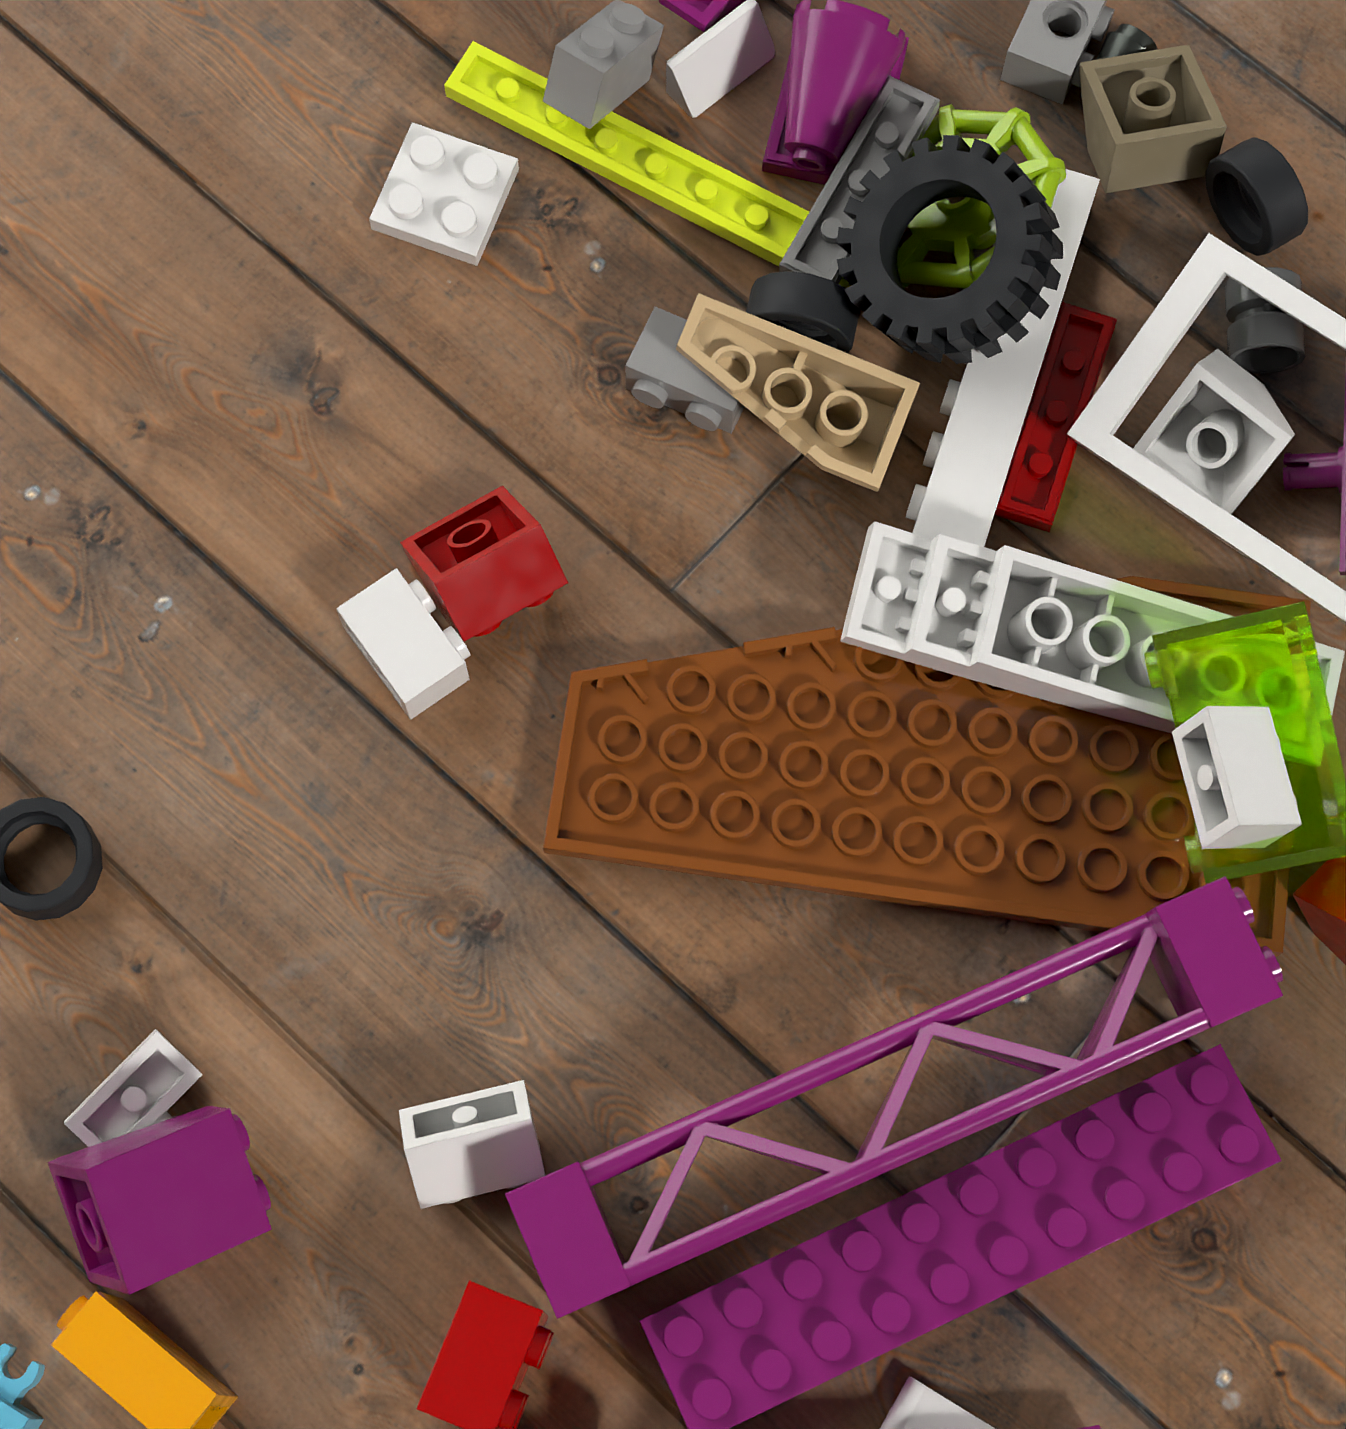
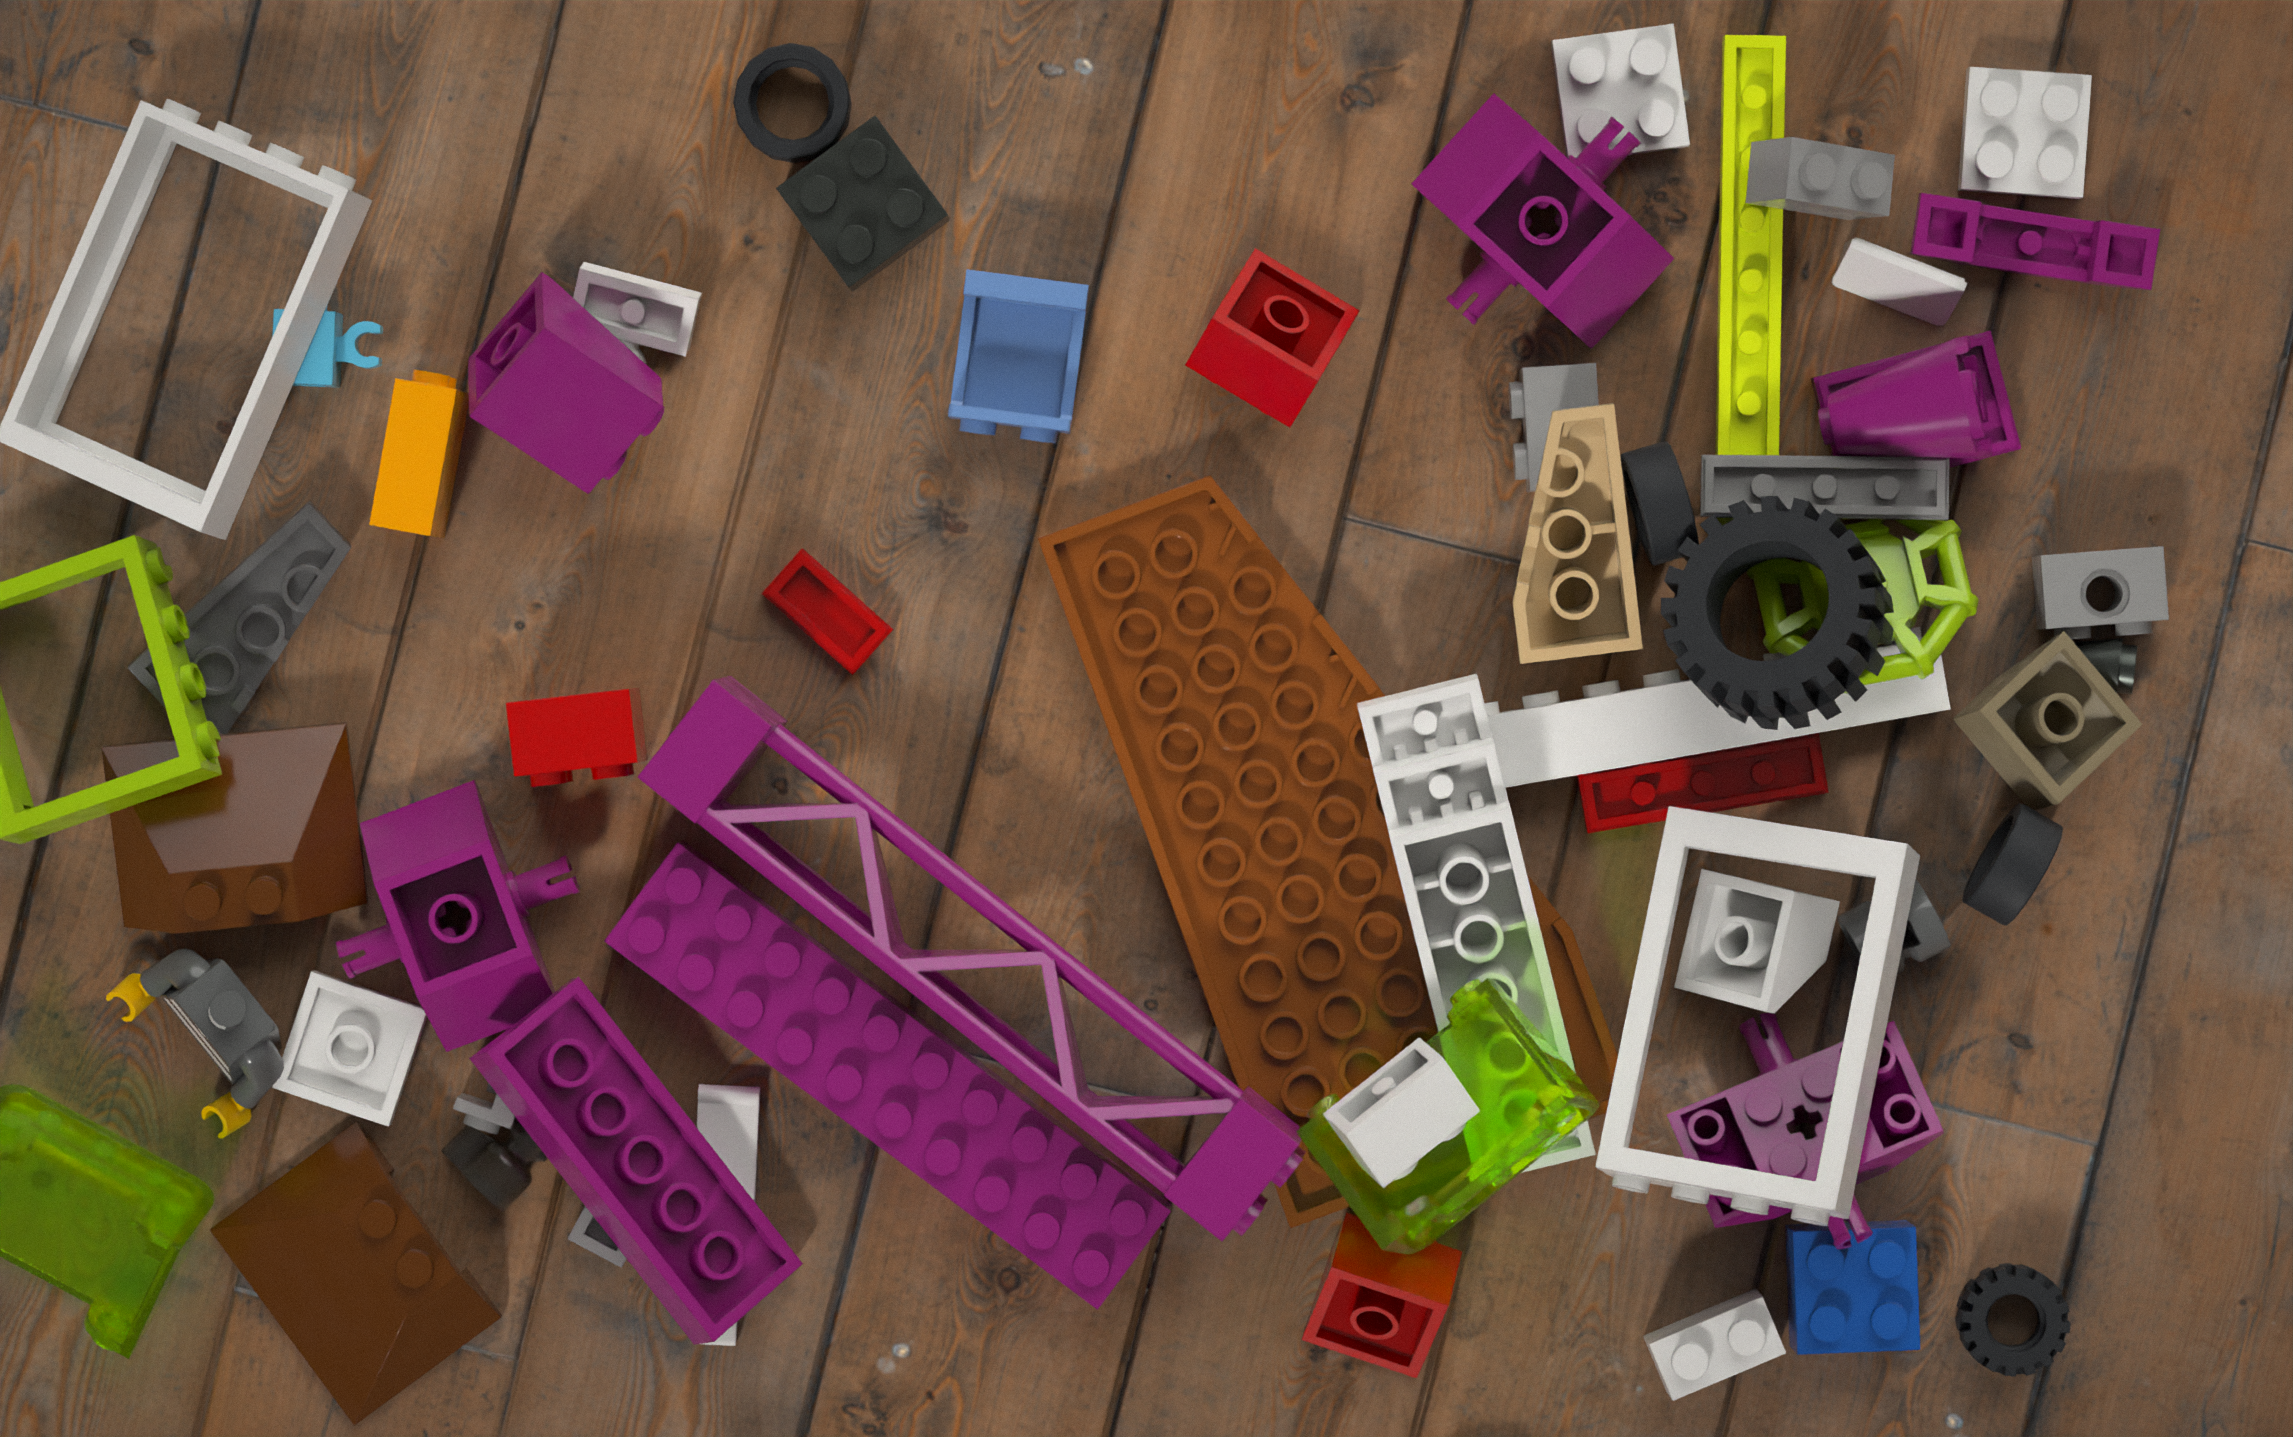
camera: 65 degrees right, 15 degrees up
(161, 841) = (863, 203): none -> pearl dark grey brick
(371, 781) = (1018, 355): none -> medium blue panel
(405, 643) = (1158, 310): white brick -> none
(462, 321) = (1595, 259): none -> magenta slope
(471, 1144) = (749, 621): white brick -> none
(528, 1056) = (827, 611): none -> red tile

